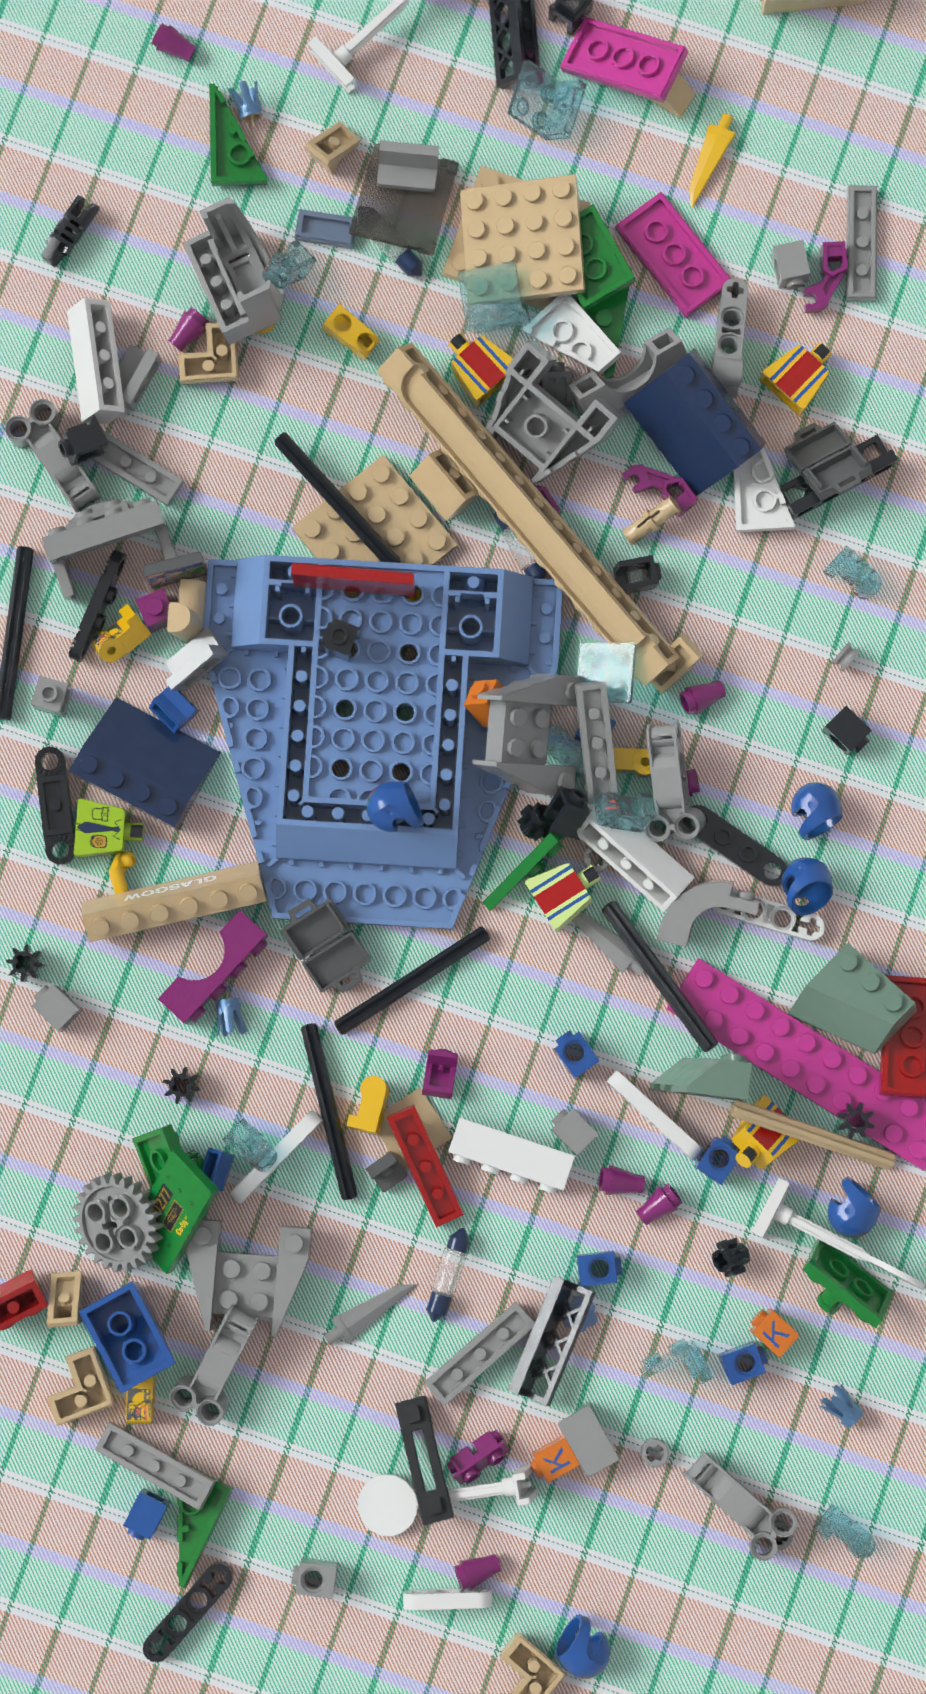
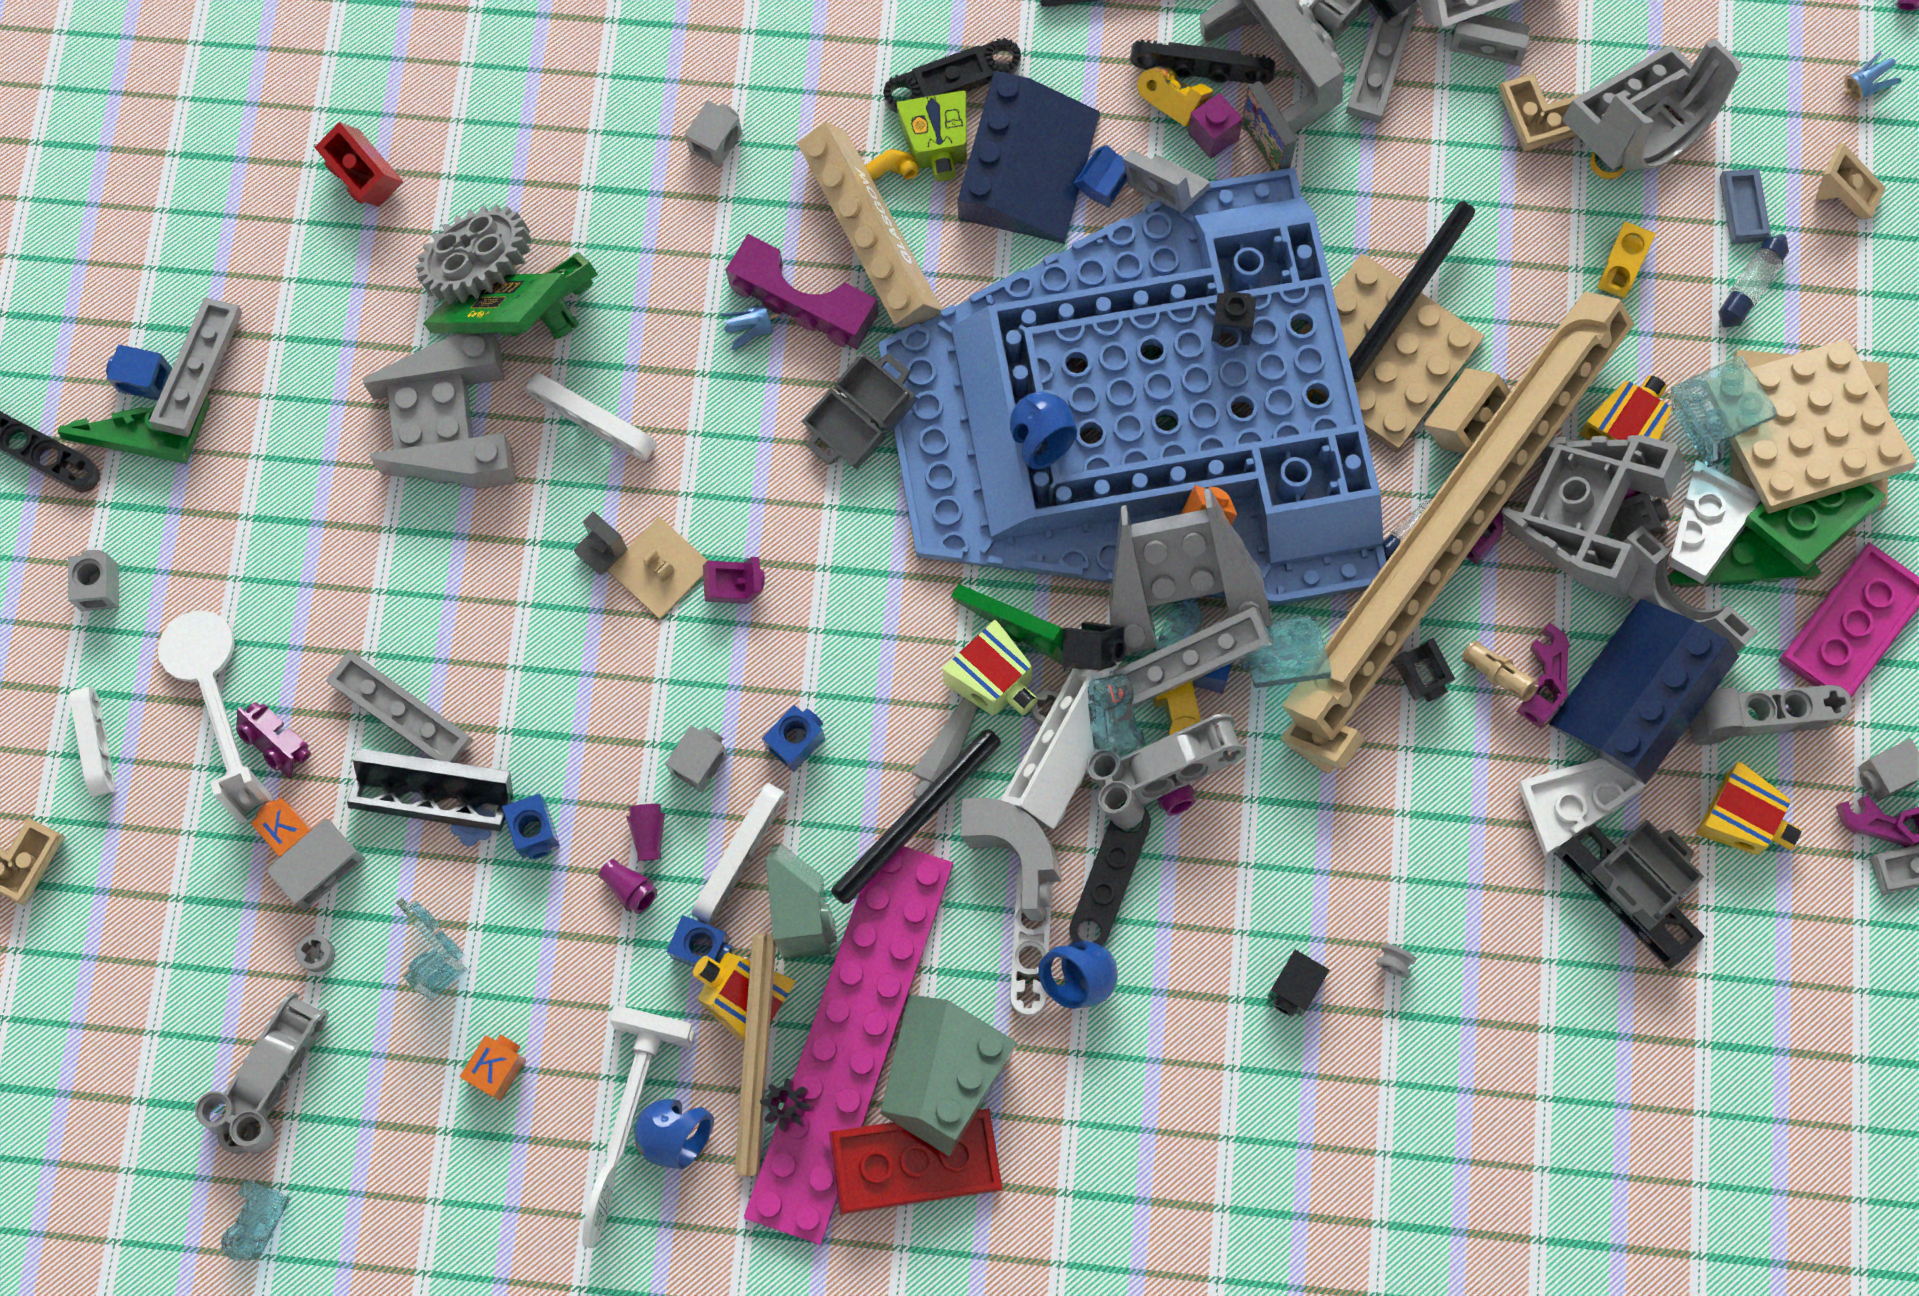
camera: 80 degrees right, 10 degrees down
(17, 963) = (758, 87): black gear -> none
(51, 696) = (1080, 38): light grey brick -> none
(65, 1299) = (371, 221): tan slope -> none
(90, 1389) = (275, 276): tan brick -> none
(128, 1336) = (342, 295): blue slope -> none
(141, 1402) = (279, 333): yellow leg -> none
(187, 614) = (1216, 160): tan brick -> none
(189, 327) = (1567, 79): magenta cone -> none
(189, 1087) = (659, 283): black gear -> none
(215, 1369) = (320, 403): light grey piece -> none
(218, 1166) = (560, 353): blue piece -> none
(230, 154) = (1801, 75): green wing -> none
(251, 1146) = (596, 381): clear light blue leg -> none
(290, 266) = (1681, 167): clear light blue leg -> none
(329, 1111) = (659, 465): black axle -> none
(353, 579) = (1311, 309): red tile -> none
(360, 1317) = (417, 561): light grey bar -> none
(372, 1106) = (675, 510): yellow leg -> none
(400, 215) = (1813, 281): clear smoke piece -> none
(407, 166) = (1856, 273): light grey panel -> none
(412, 980) = (842, 524): black axle -> none
(424, 1165) = (614, 586): red plate -> none
(433, 1504) = (202, 695): black container -> none
(448, 1275) = (488, 649): piece -> none
(477, 1570) = (131, 767): magenta cone -> none
(511, 1154) = (651, 688): white brick -> none
(533, 822) = (1074, 613): black gear -> none
(582, 1655) = (43, 917): blue helmet -> none
(700, 697) = (1291, 789): magenta cone -> none
(730, 1357) = (432, 1028): blue brick -> none
(731, 1257) = (578, 989): black gear -> none
(820, 805) = (1189, 961): blue helmet -> none
(843, 1407) = (404, 1187): flat silver piece -> none
(846, 1284) = (571, 1145): green plate -> none
(856, 572) = (1512, 947): clear light blue leg -> none

